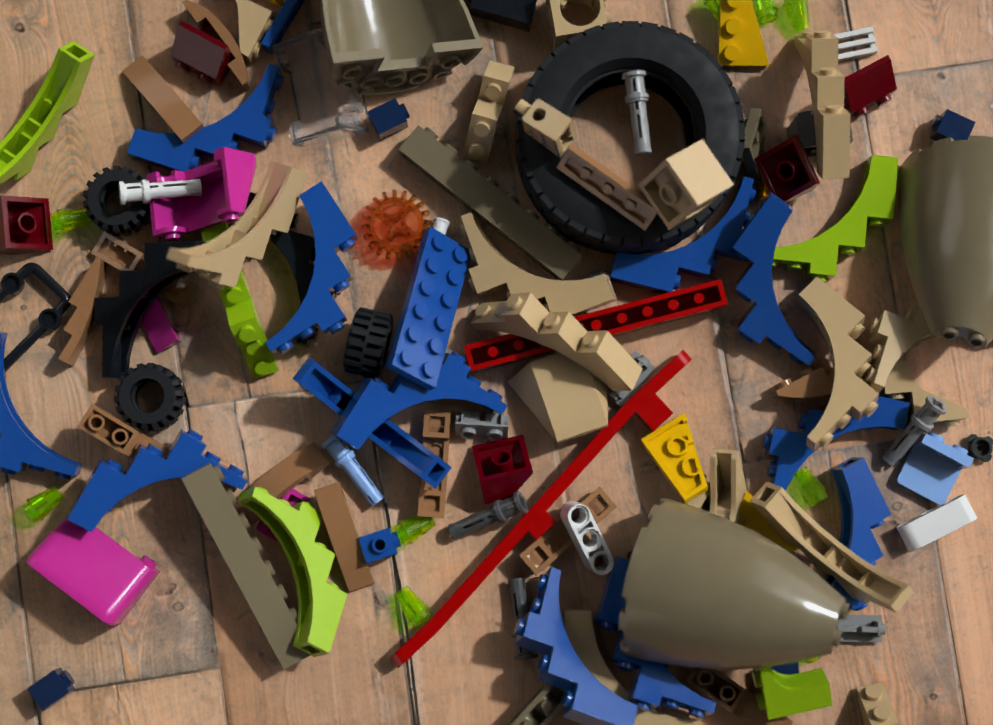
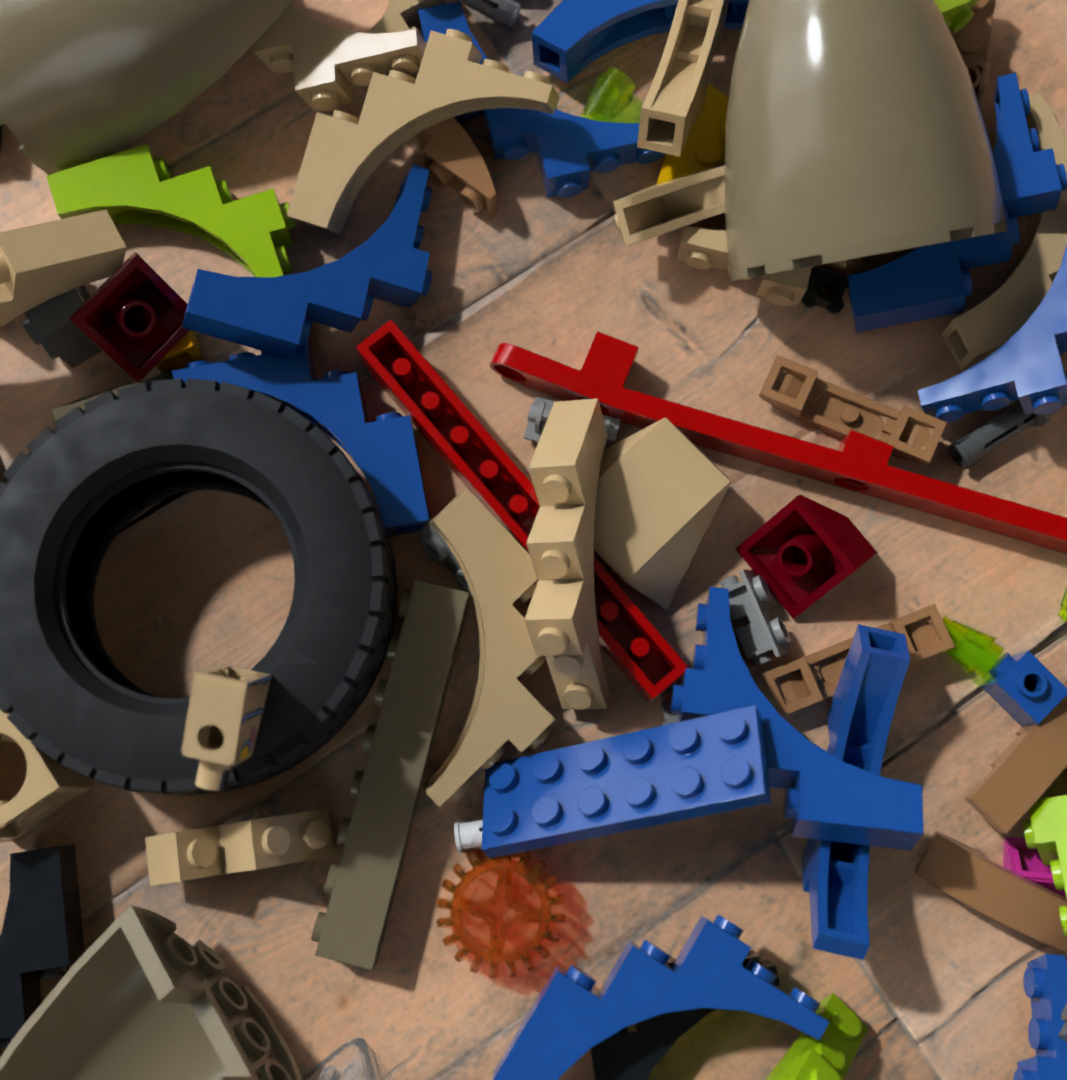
camera: 110 degrees left, 5 degrees down
(346, 460) = (936, 772): light blue pin -> none
(368, 343) = (724, 861): black tyre -> none
(389, 118) = (323, 1013): dark blue brick -> none
(498, 508) = (881, 524): dark grey pin -> none
(596, 545) = (848, 375): white beam -> none
(607, 186) = (287, 567): medium nougat plate -> none
(639, 98) = (116, 597): light grey pin -> none
(677, 458) = (662, 296): yellow wing -> none
(685, 184) = (228, 431): tan brick -> none

